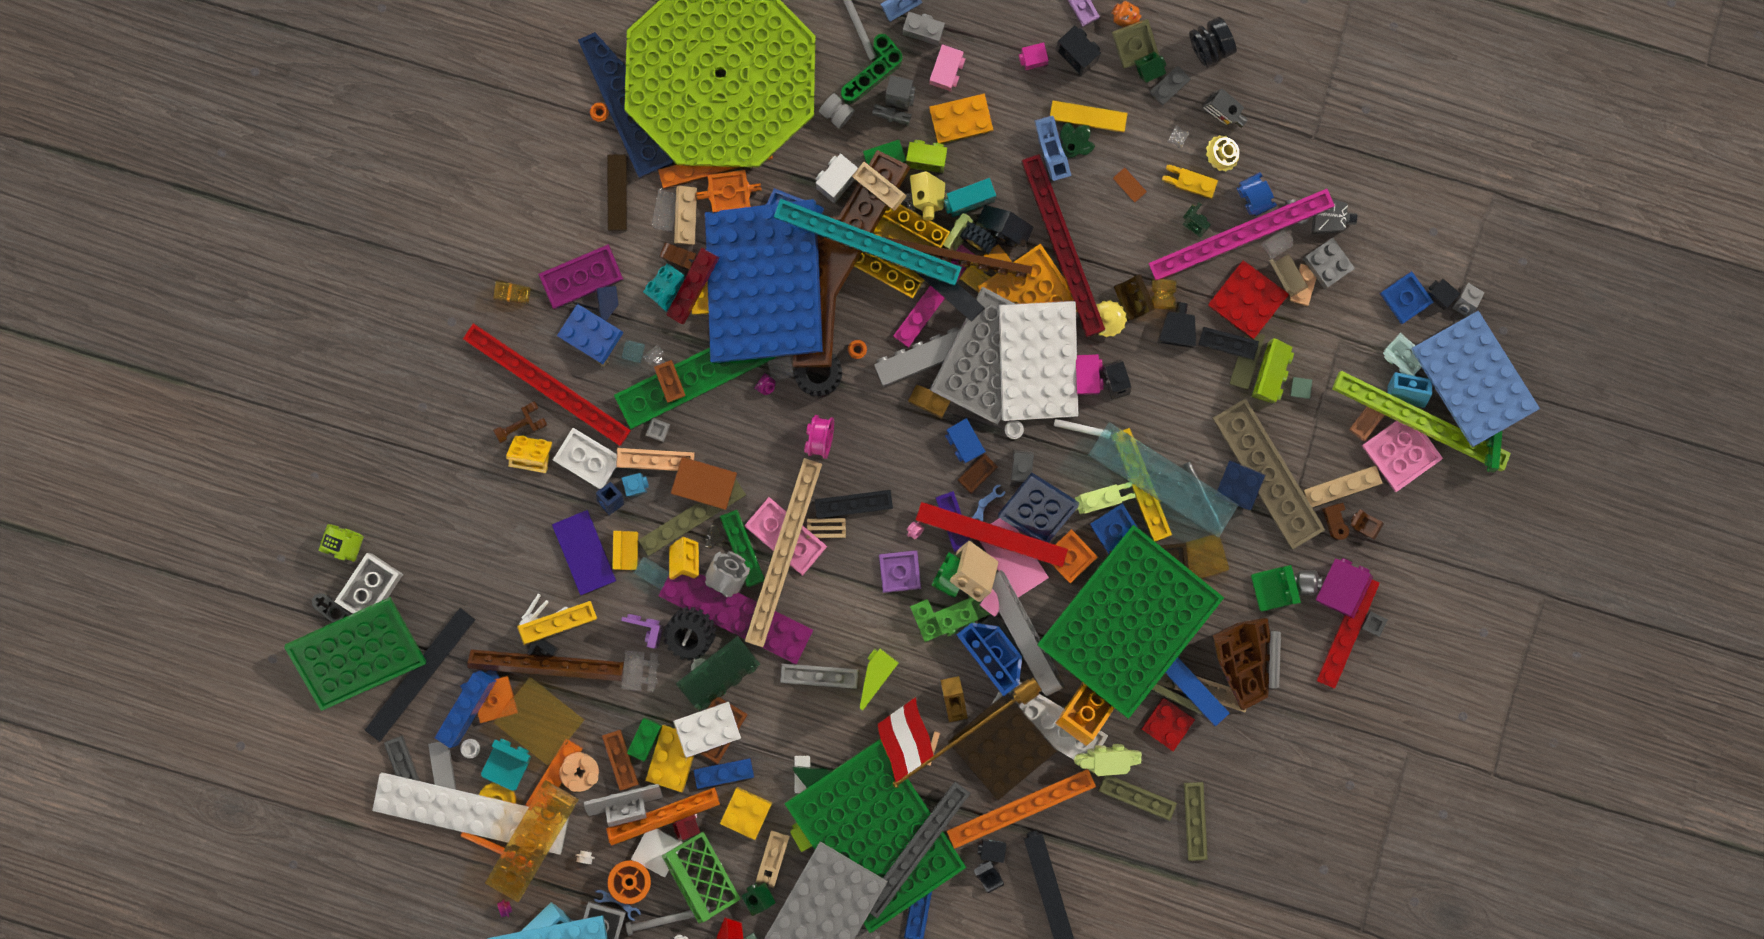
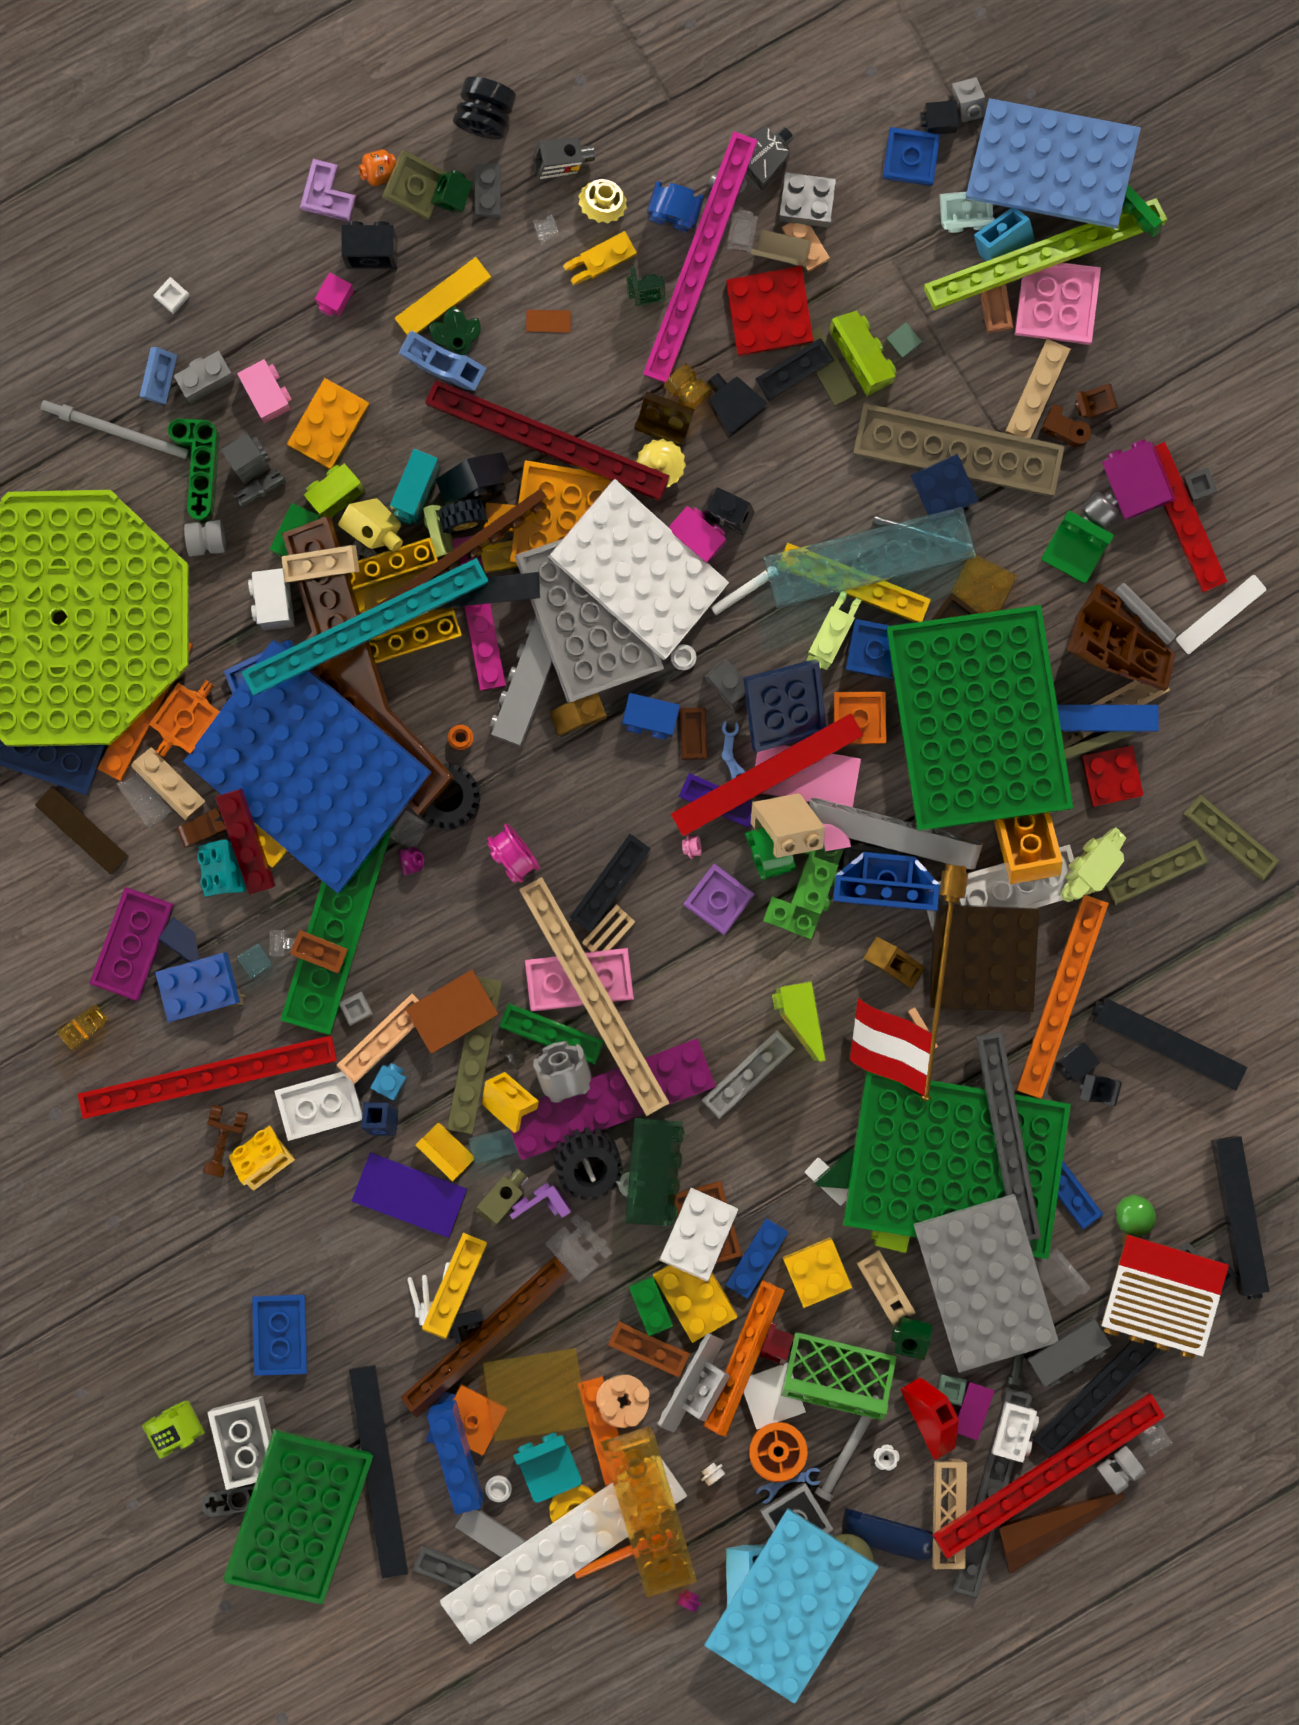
camera: 50 degrees left, 0 degrees up
(444, 553) = (280, 1334): none -> blue plate
(619, 604) = (493, 1206): none -> olive torso
(1313, 702) = (1221, 614): none -> white sticker

